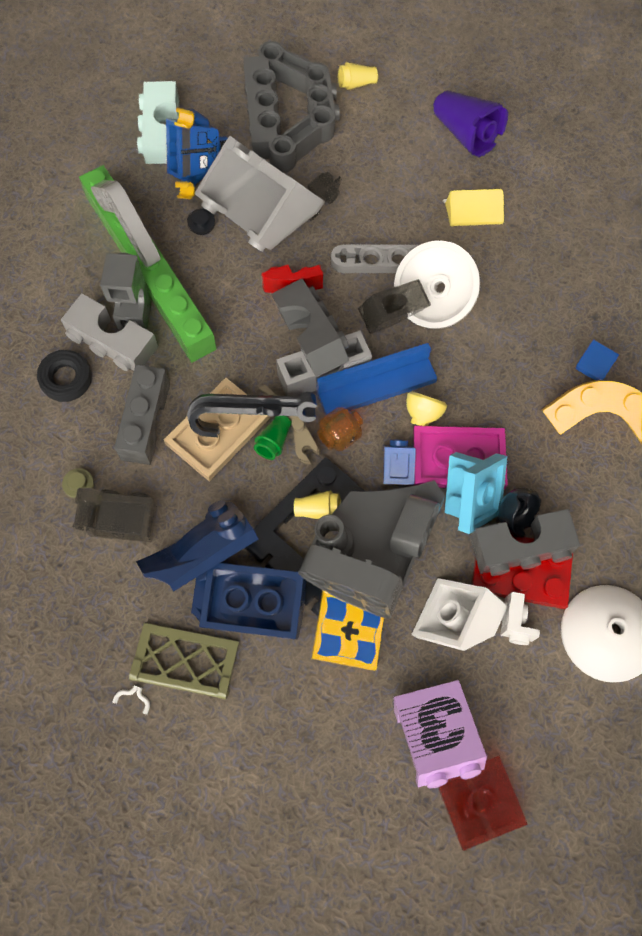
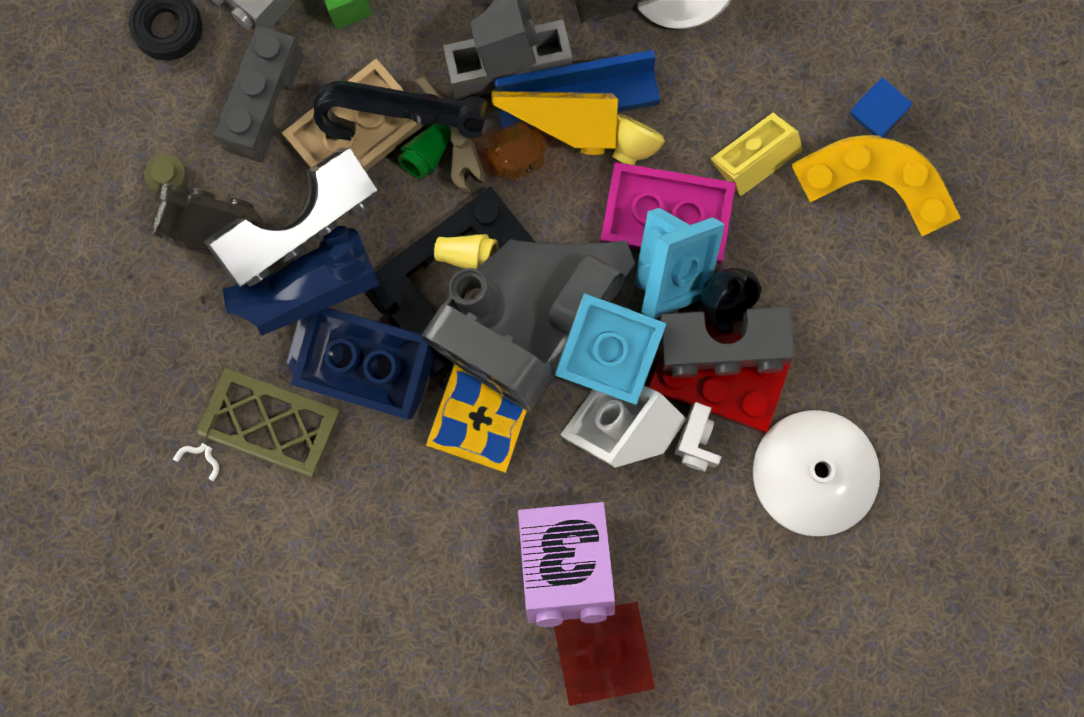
camera: 15 degrees right, 10 degrees up
(211, 473) = (334, 188): none -> arch
(382, 398) = (573, 117): none -> yellow slope
(399, 463) = (585, 208): bracket -> none
(443, 559) = (610, 348): none -> medium azure bracket
(514, 405) = (758, 153): none -> light yellow slope

